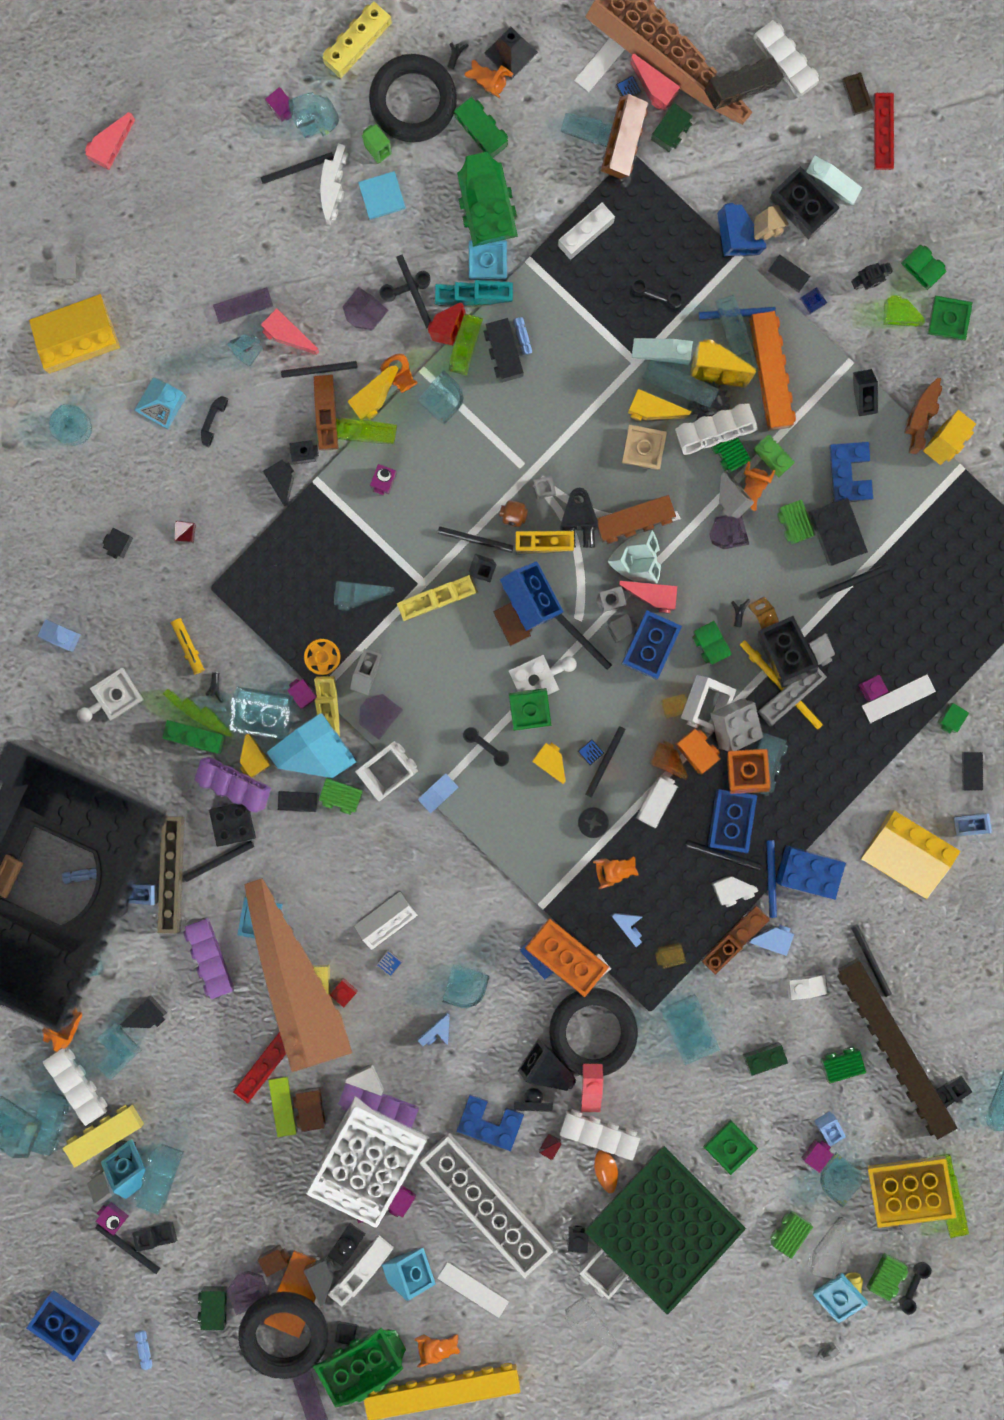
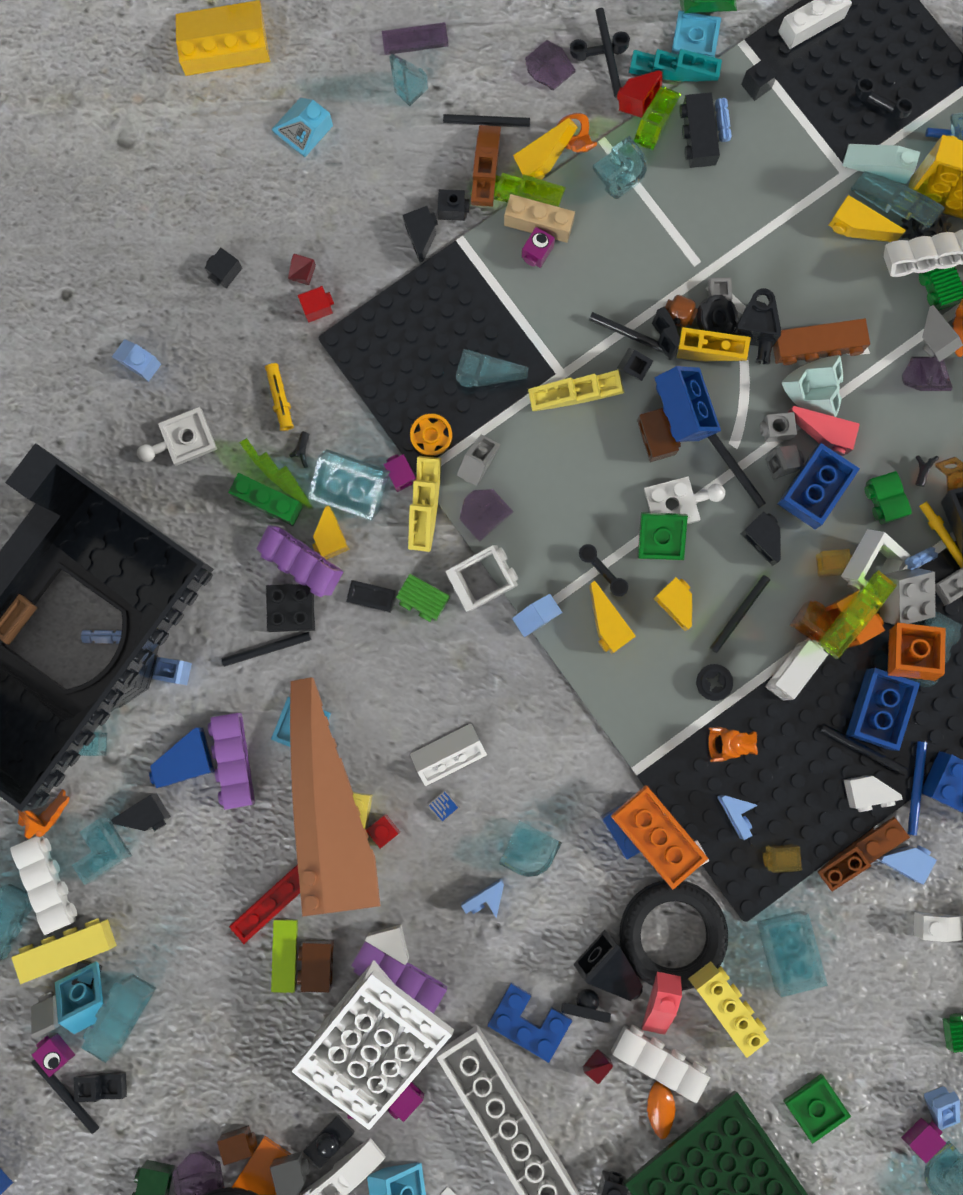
camera: 15 degrees right, 5 degrees down
(67, 435) = (196, 130): clear light blue brick -> none
(169, 966) = (183, 761): none -> blue slope
(171, 875) = (207, 653): dark tan brick -> none
(203, 560) = (316, 303): none -> red brick
(219, 404) = (368, 137): black bar -> none
(284, 332) = (457, 73): coral slope -> none
(313, 750) = (400, 537): medium azure panel -> none
(379, 453) = (527, 214): none -> tan brick
(499, 791) = (609, 623): none -> yellow slope
(506, 539) = (668, 333): none -> black slope
(545, 513) = (717, 315): none -> black tile
(547, 296) = (759, 79): none -> black brick
(590, 752) = (724, 599): tile -> none
(614, 693) = (765, 537): none -> black slope
(643, 1081) = (728, 1009): none -> light yellow brick
(644, 447) = (842, 264): tan plate -> none
(694, 751) = (857, 614): none -> clear neon green slope
(745, 690) = (921, 558): none -> light blue axle
(765, 1058) = (877, 1006): dark green brick -> none

